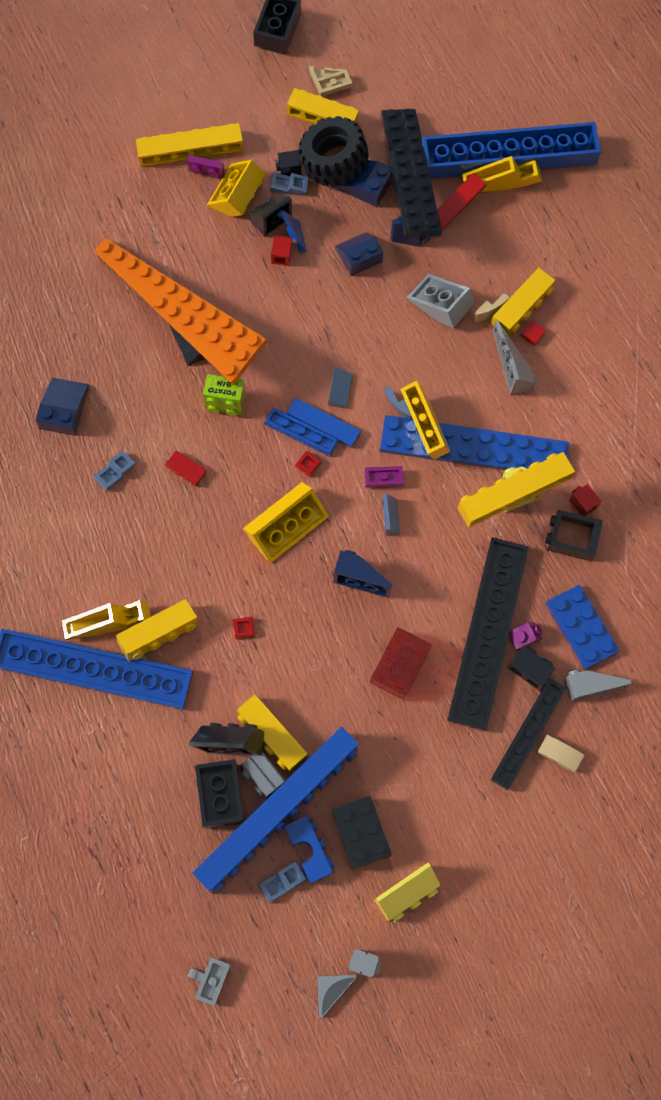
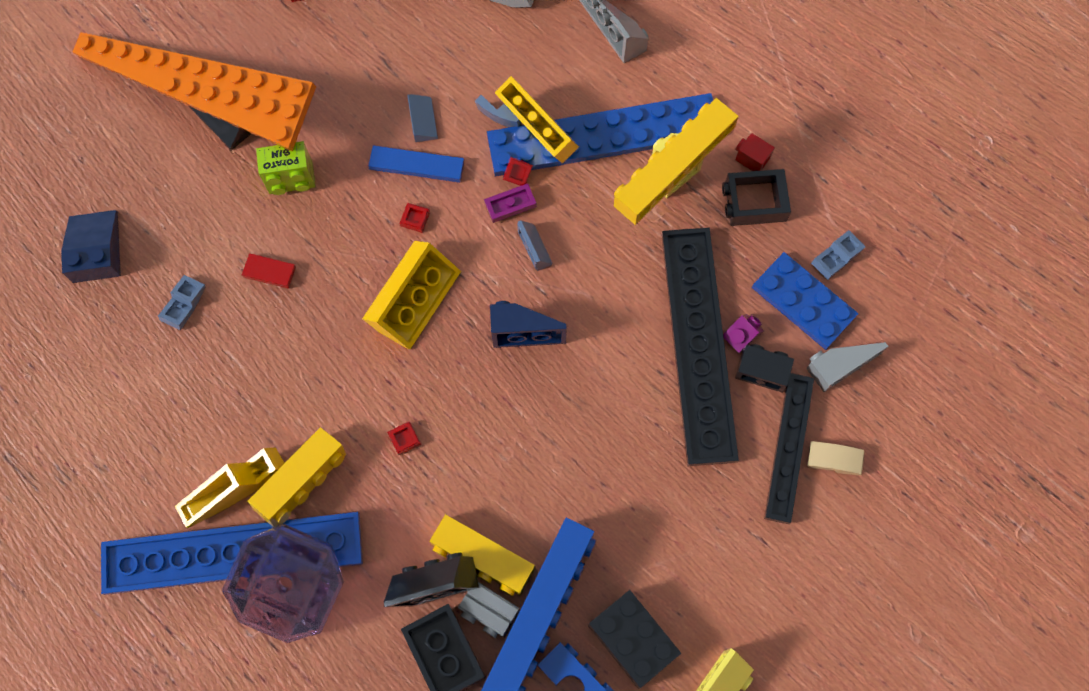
camera: 15 degrees left, 0 degrees up
(108, 718) = (266, 604): none -> clear purple piece
(301, 432) = (393, 183): blue tile -> none
(397, 454) = (517, 171): none -> red tile
(401, 663) = (609, 416): clear red brick -> none
(621, 600) = (838, 254): none -> sand blue slope

